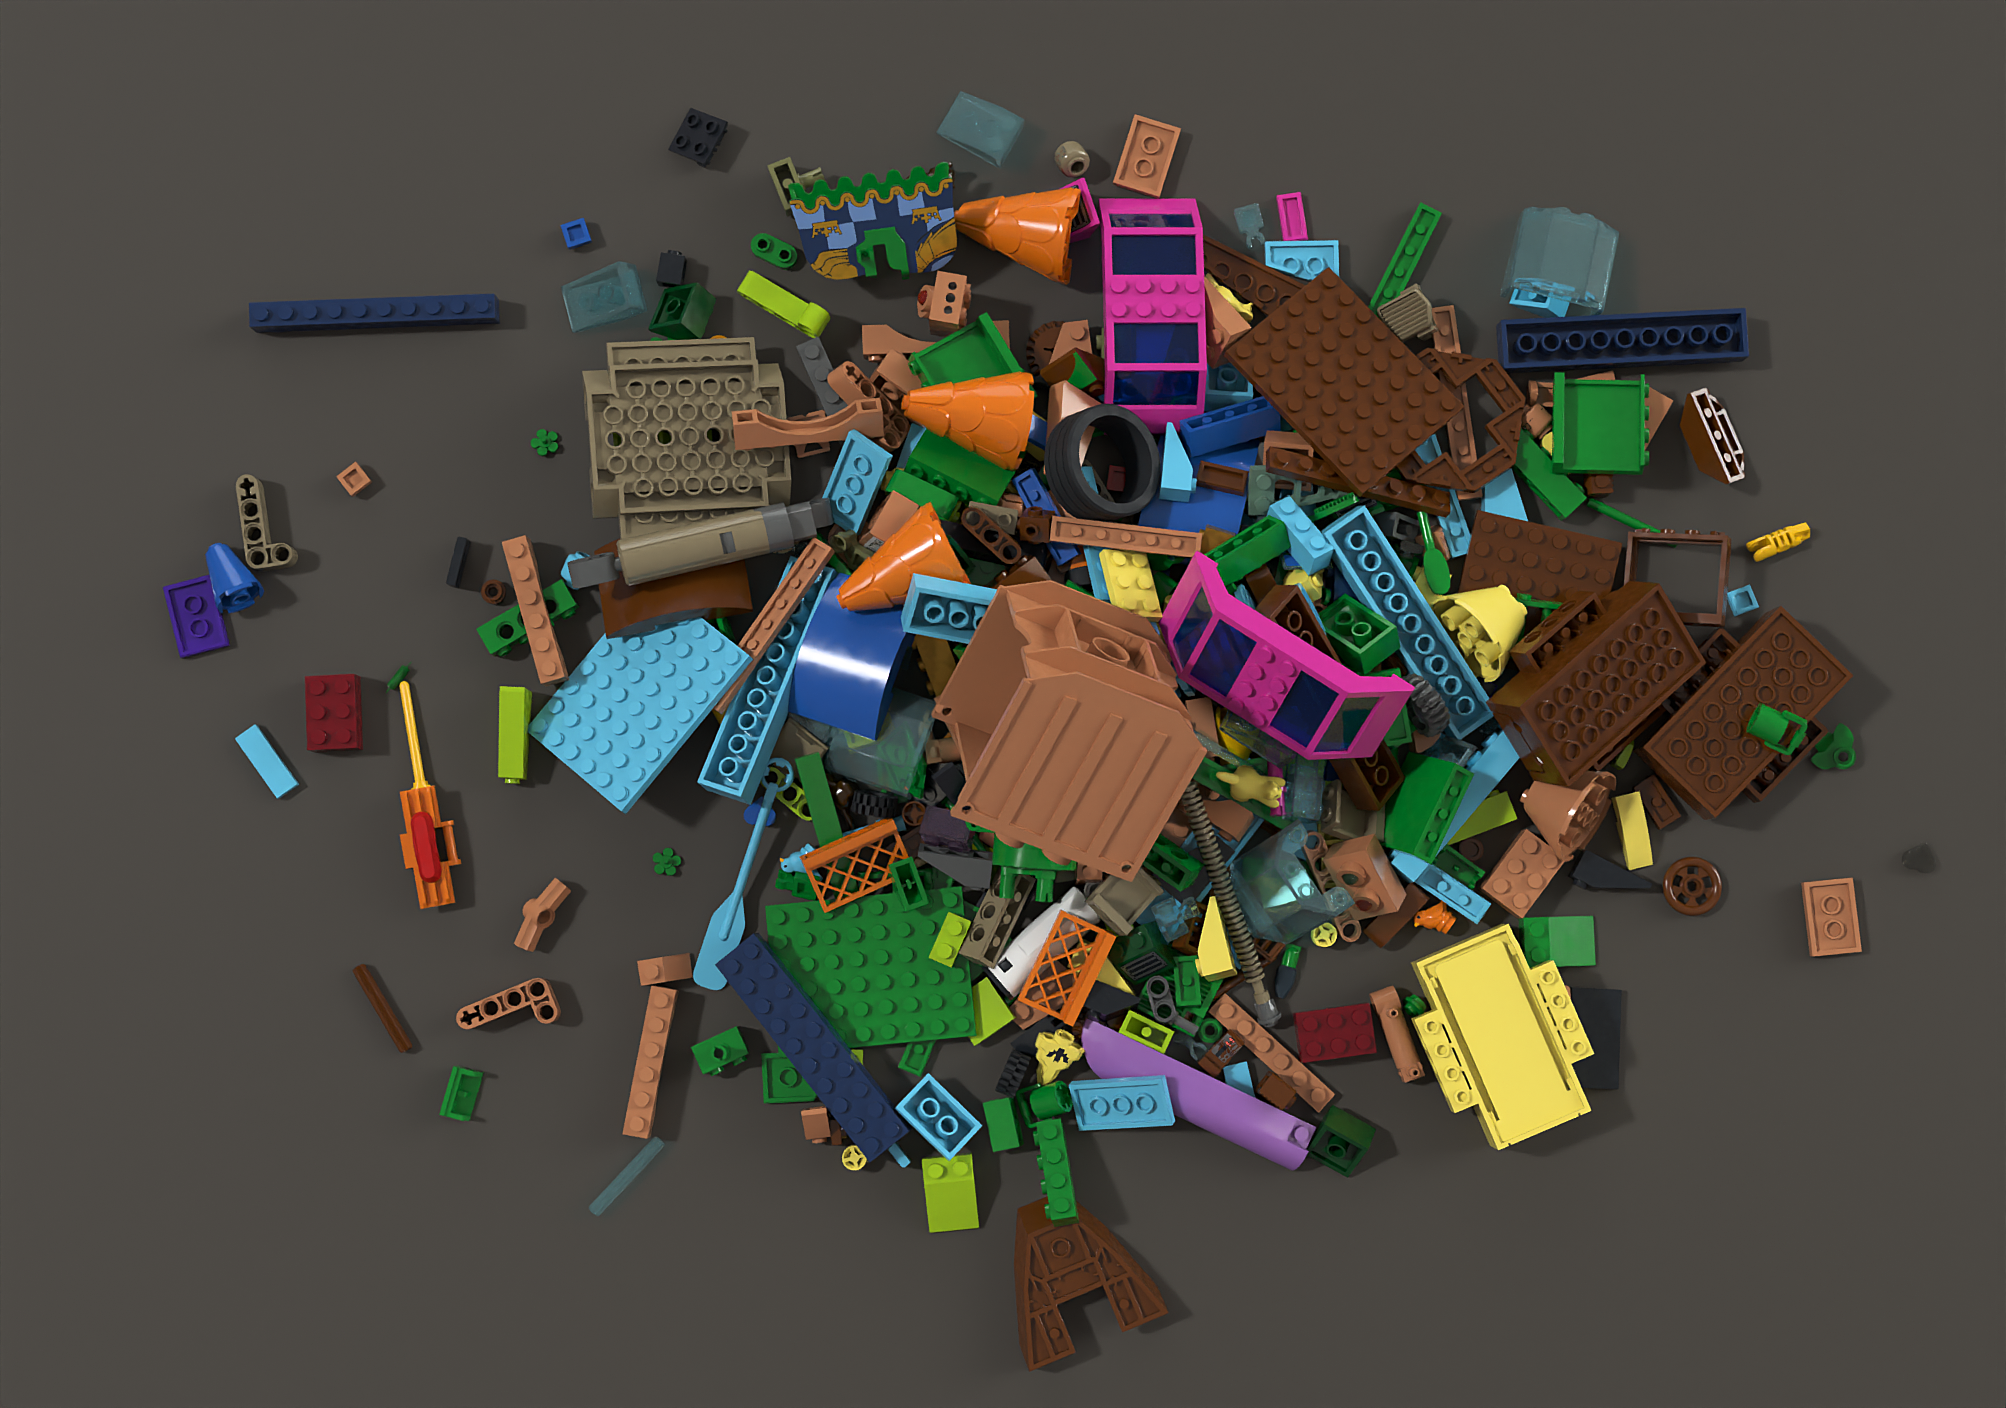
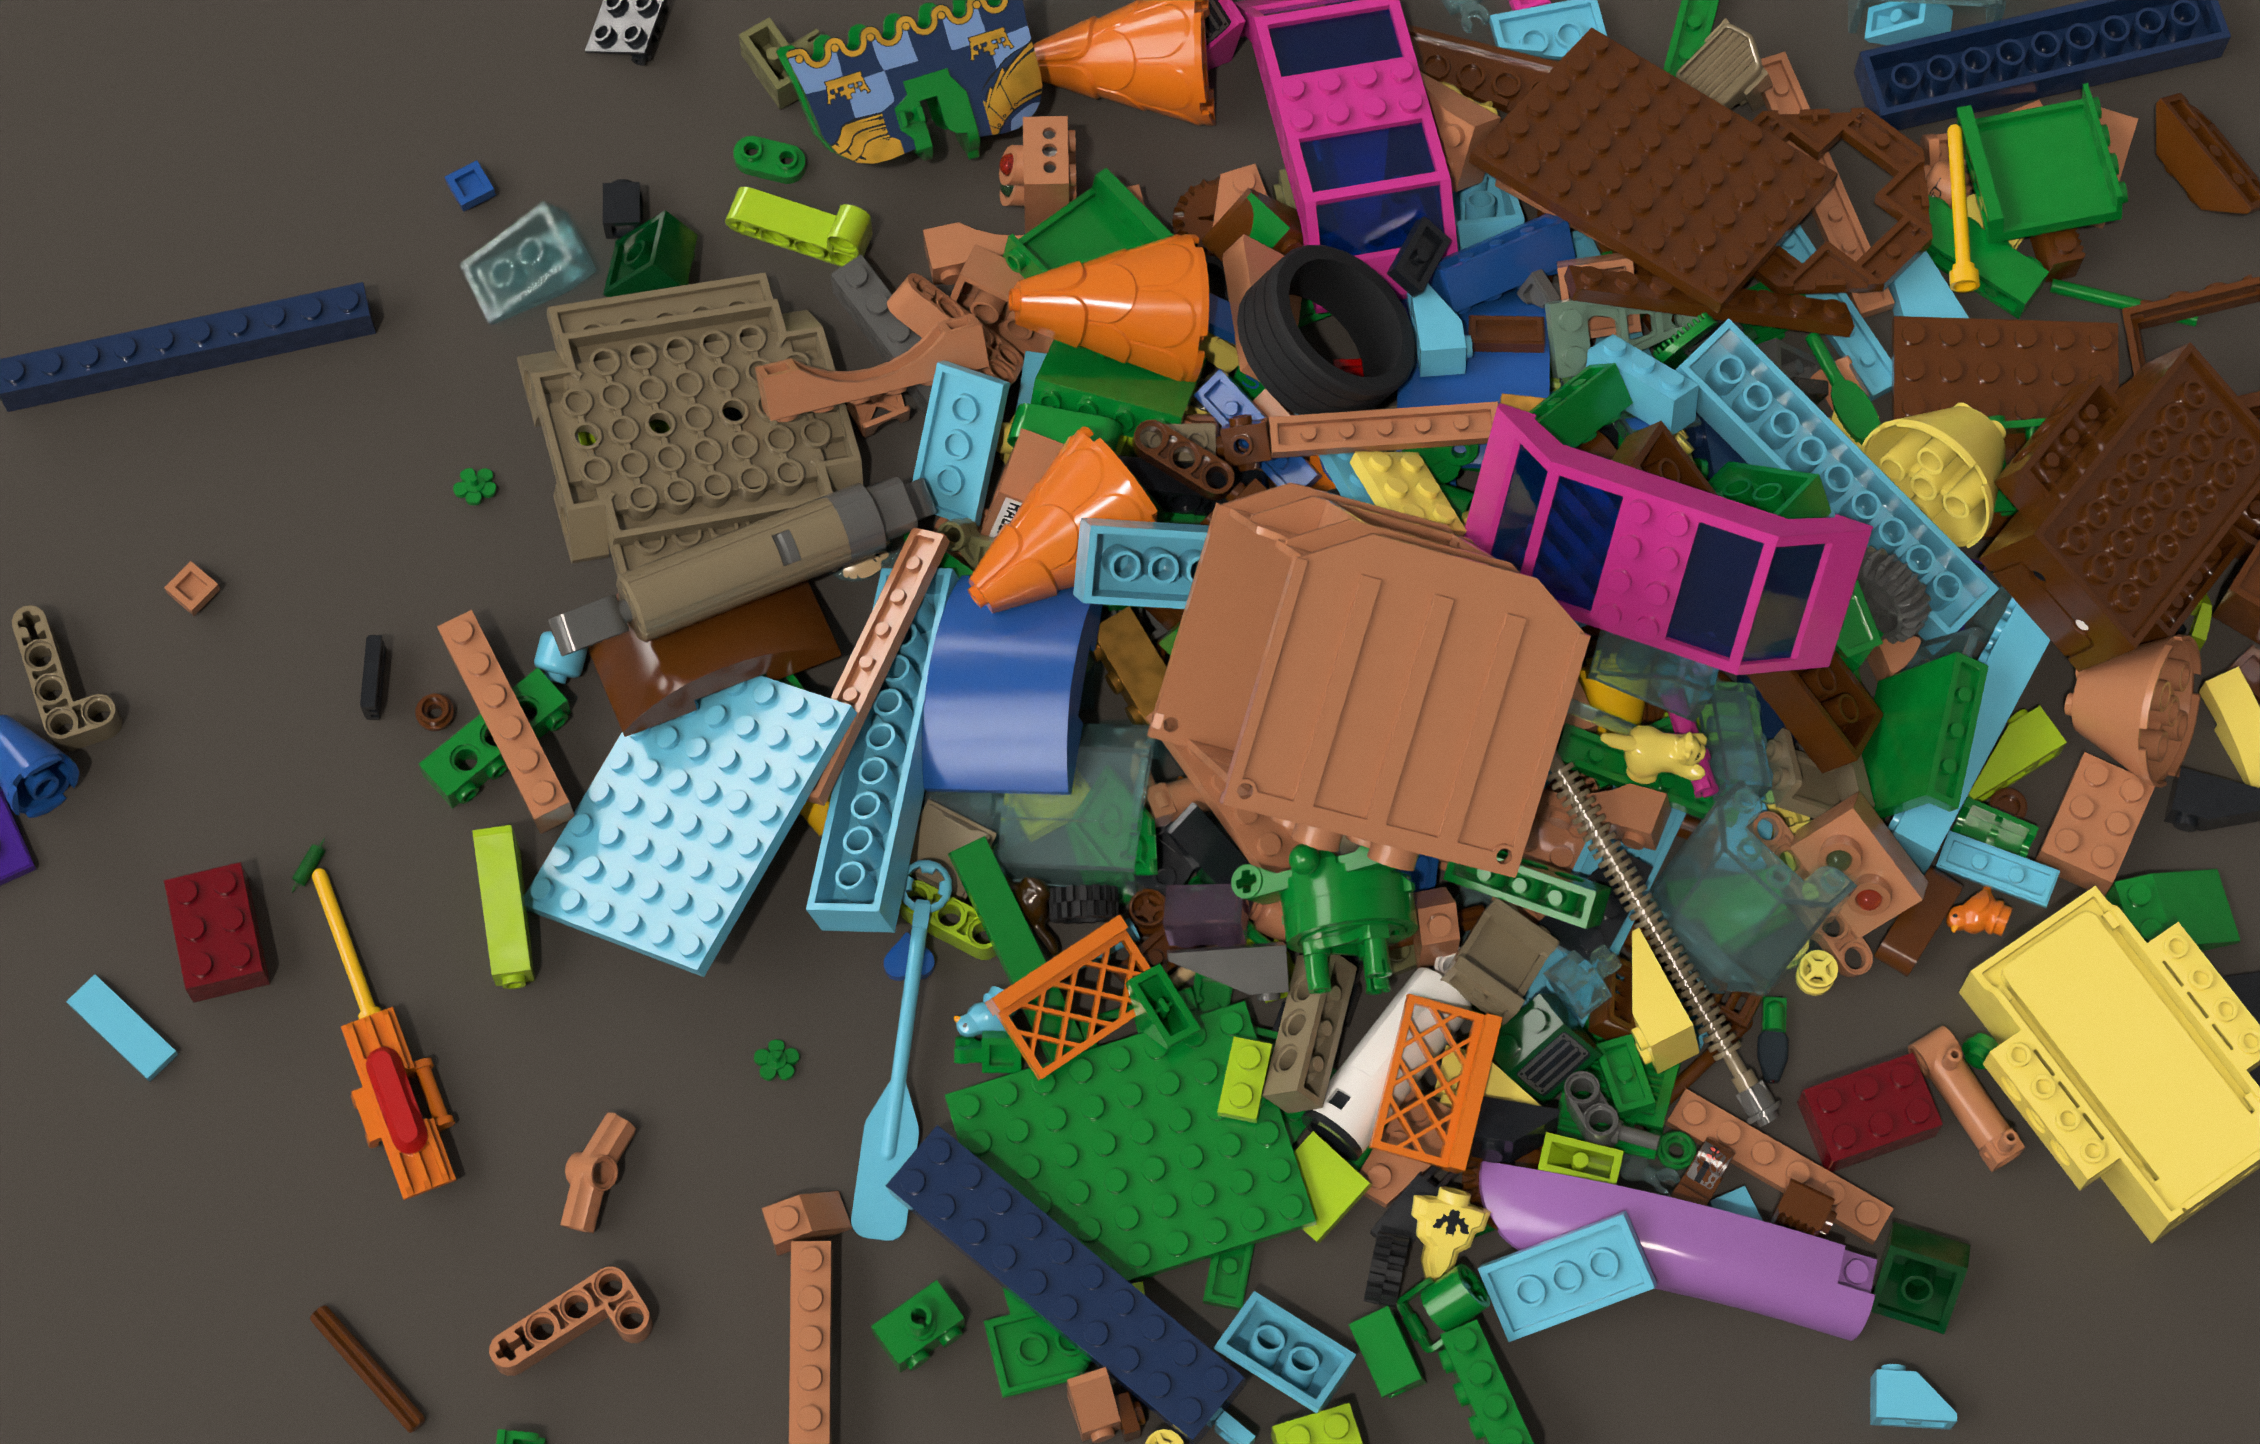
camera: 10 degrees left, 15 degrees down
(1175, 418) = (1418, 256): none -> black plate
(1250, 450) = (1537, 290): none -> dark grey tile
(1312, 1216) = (1907, 1400): none -> medium azure slope
(1530, 490) = (1964, 275): none -> yellow piece

